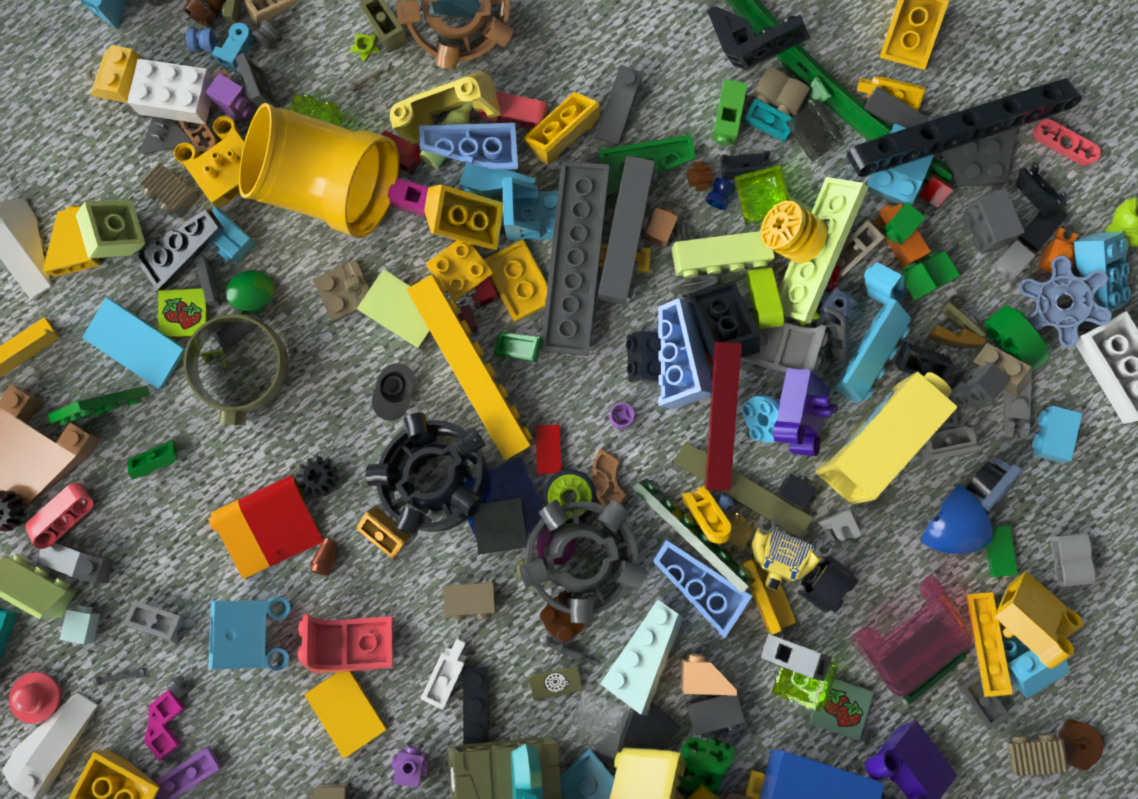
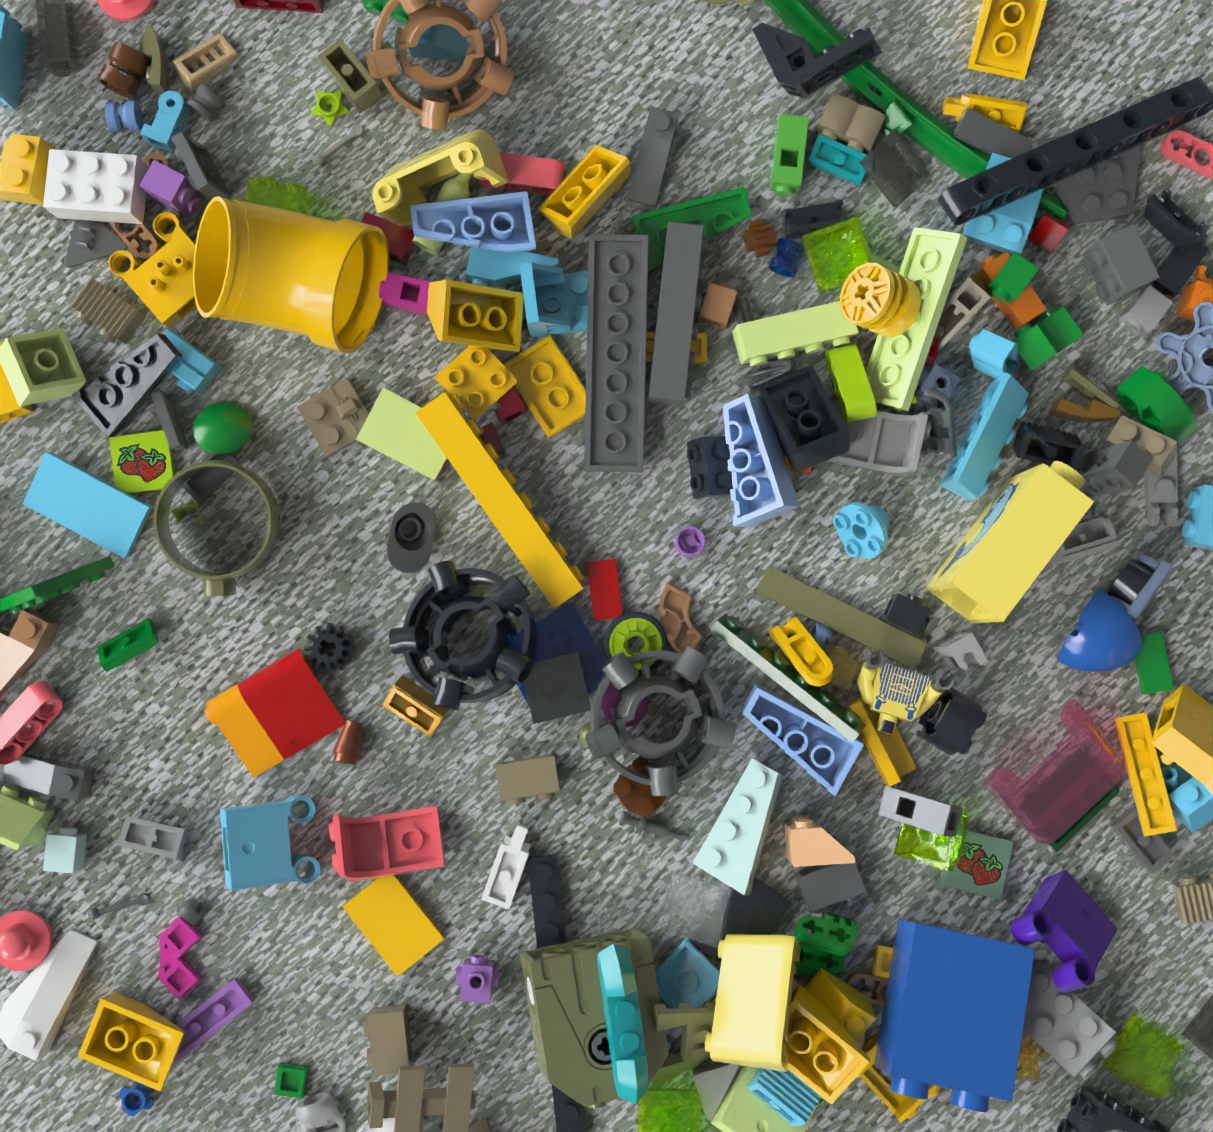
camera: 10 degrees left, 5 degrees up
(518, 346) = (557, 468): green tile -> none
(555, 682) = (638, 864): olive slope -> none
(722, 415) = (812, 531): dark red tile -> none
(802, 412) = (907, 519): dark purple piece -> none

